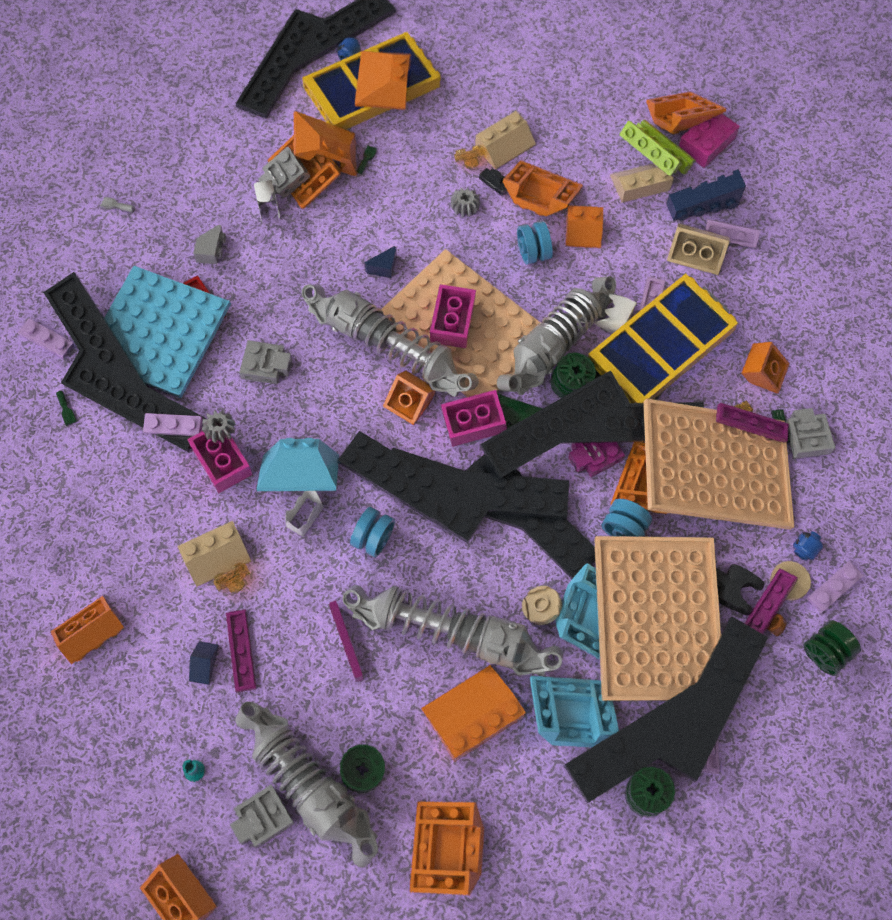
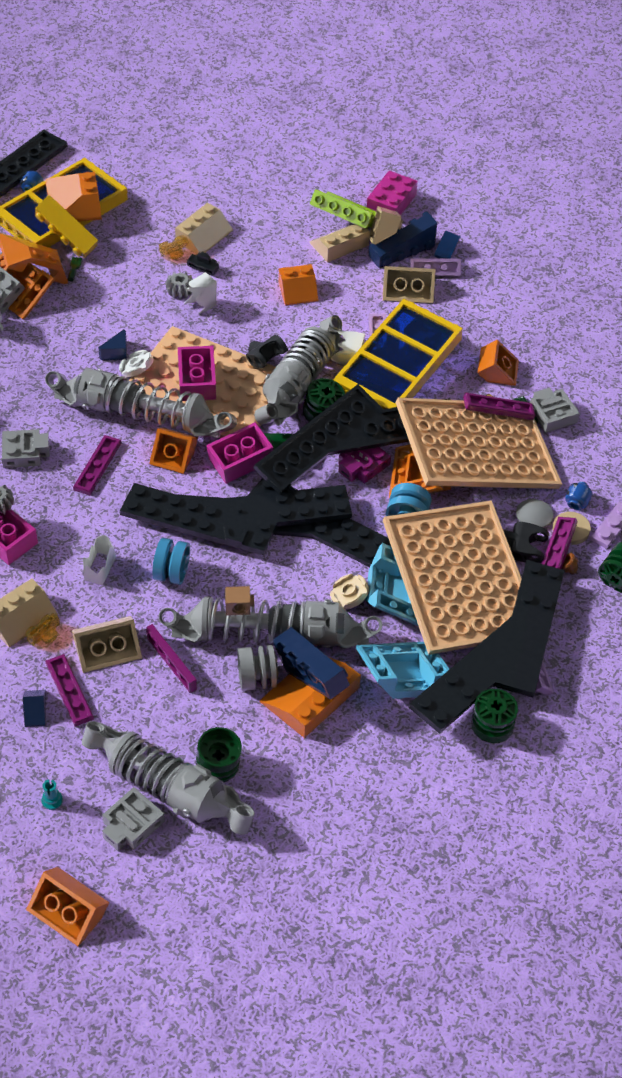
camera: 15 degrees left, 15 degrees down
(288, 608) = (107, 644): none -> tan slope
(299, 466) = (82, 521): medium azure slope -> none
(331, 396) = (97, 465): none -> magenta tile
(367, 113) = (66, 226): none -> yellow brick
(398, 287) = (136, 364): none -> white tile
(421, 607) = (238, 600): none -> medium nougat brick
(425, 677) = (257, 667): none -> light grey wheel
(447, 848) = (317, 803): orange slope -> none
(478, 693) = (310, 664): none -> dark blue wedge
(488, 214) = (204, 292): none -> white piece
(528, 303) = (262, 352): none -> black connector
(534, 242) = (256, 303): dark azure wheel -> none
(540, 189) = (247, 263): orange slope -> none
(682, 111) = (361, 179): orange slope -> none
(690, 177) = (384, 224): none -> tan slope
(750, 209) = (447, 245): none -> blue slope
(756, 554) = (534, 512): none -> light grey dish

